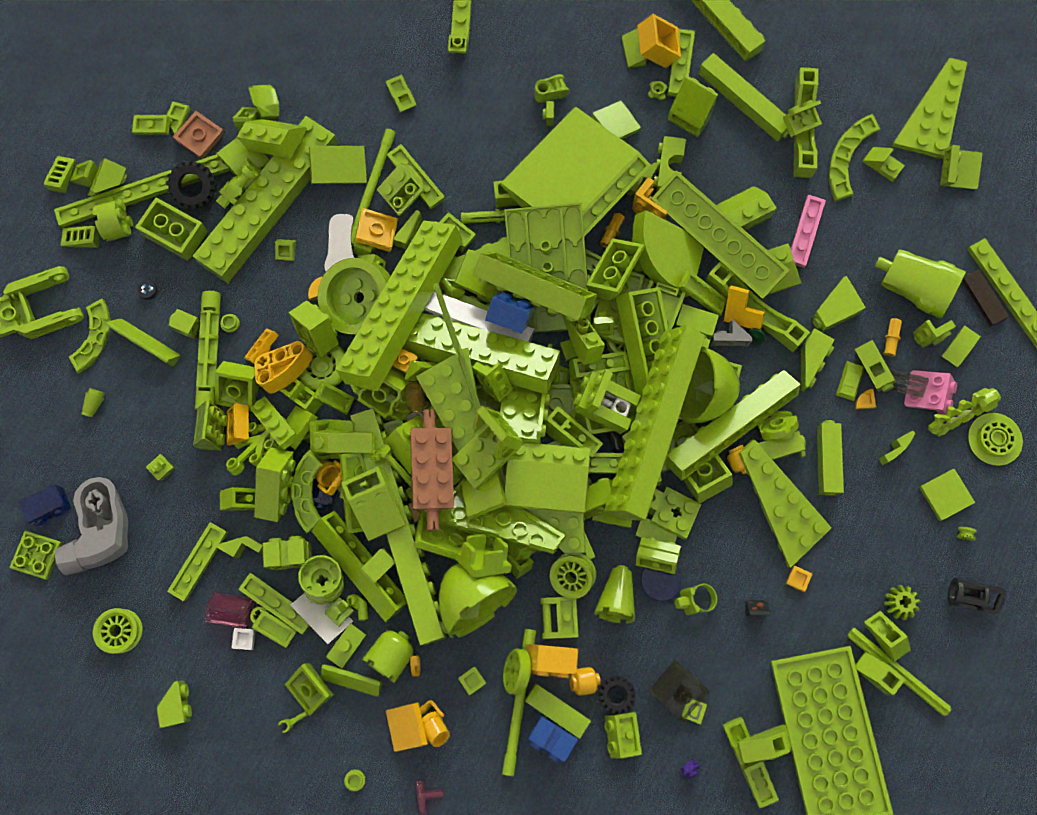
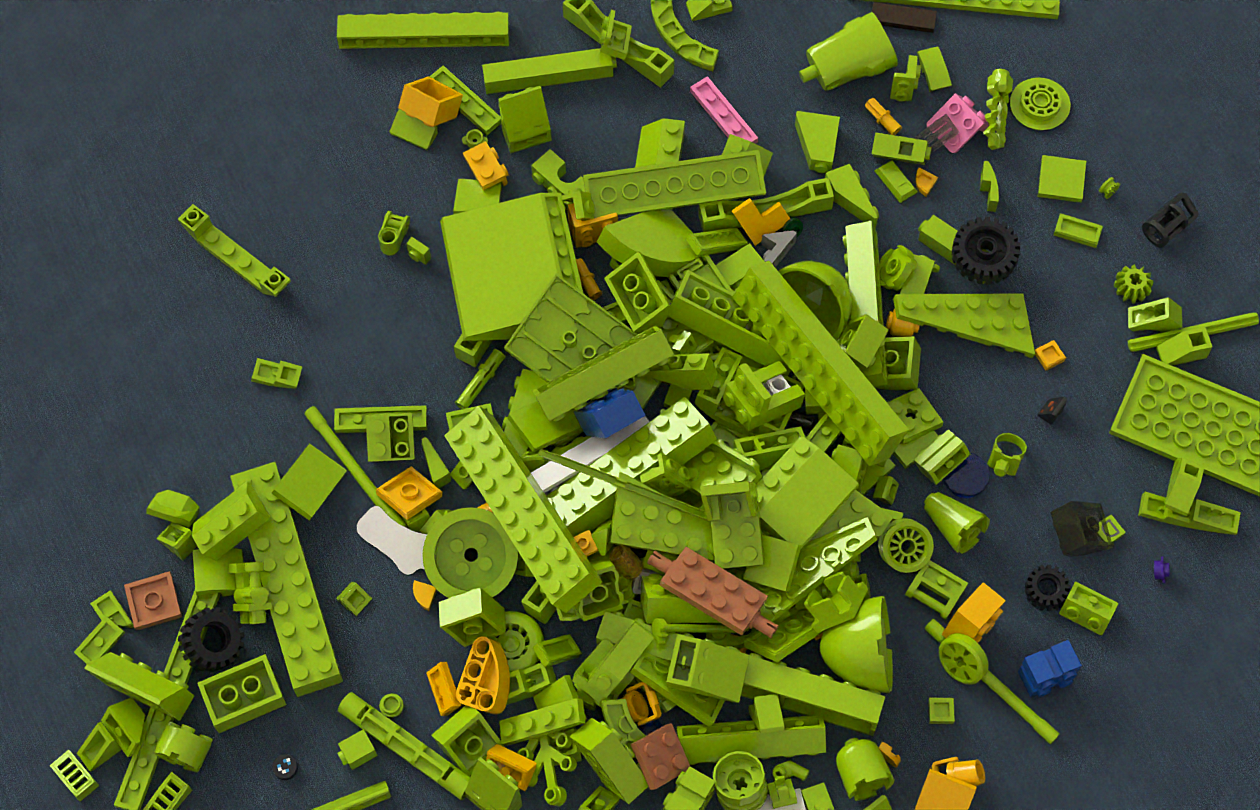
camera: 55 degrees left, 10 degrees down
(132, 166) = (142, 684): none -> lime slope
(299, 515) = (660, 756): none -> nougat plate
(557, 711) = (1012, 653): lime slope -> none
(584, 681) = (1015, 607): yellow head -> none
(607, 533) = (886, 489): none -> lime slope
(642, 109) = (485, 166): none -> yellow bracket
(654, 185) = (582, 202): none -> lime bracket
(693, 440) = (862, 340): none -> lime slope
(855, 476) = (985, 265): none -> black wheel
(914, 533) = (1078, 230): none -> lime tile

